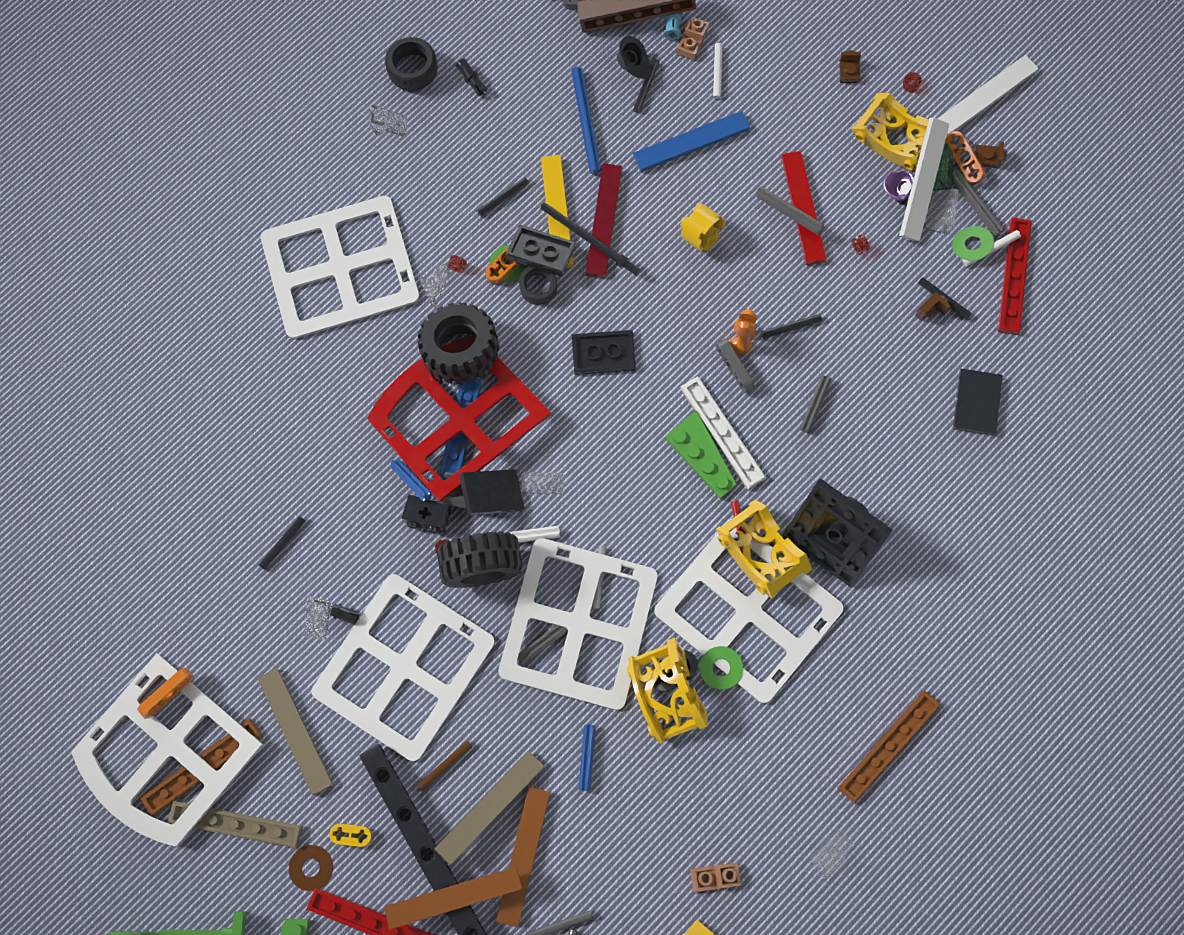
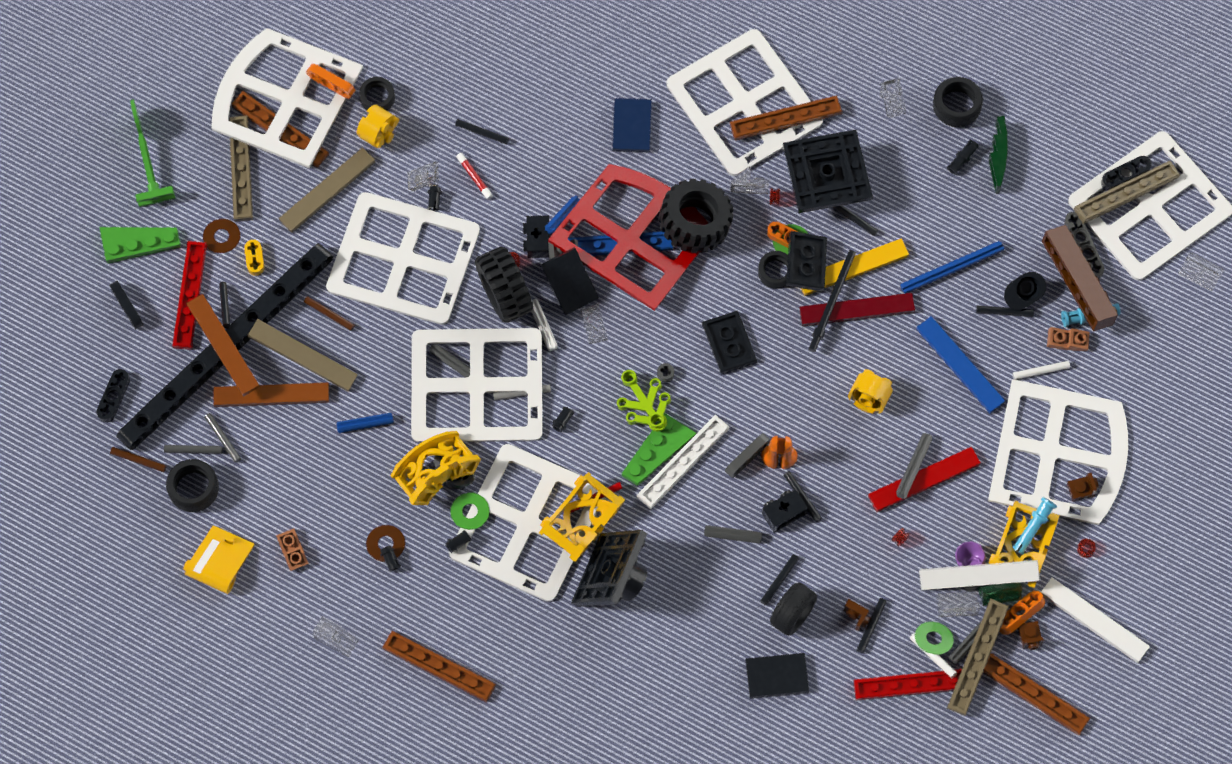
camera: 70 degrees right, 5 degrees down
(185, 638) = (377, 82): none -> black tyre
(240, 653) = (377, 126): none -> yellow brick
(328, 384) = (632, 125): none -> dark blue tile
(331, 564) = (475, 177): none -> bar
(372, 230) = (785, 118): none -> dark orange tile
(401, 884) = (224, 304): none -> black bar
(452, 199) = (827, 171): none -> black piece
(487, 45) = (998, 158): none -> dark green slope
(617, 418) = (668, 378): none -> dark grey bush
(643, 542) = (563, 418): none -> black pin
(650, 452) = (644, 403): none -> lime plant
(722, 780) = (380, 531): none -> reddish brown piece
(754, 768) = (390, 558): none -> black pin
(756, 689) = (458, 541): none -> black pin
(803, 86) = (1050, 450): none -> white window
(805, 335) = (779, 519): none -> black brick
(875, 372) = (779, 579): none -> black bar
(882, 106) = (1039, 516): none -> medium azure pin
(920, 362) = (793, 608): none -> black tyre
(1005, 206) = (977, 657): none -> dark tan tile
(1048, 170) = (1035, 694): none -> dark orange tile

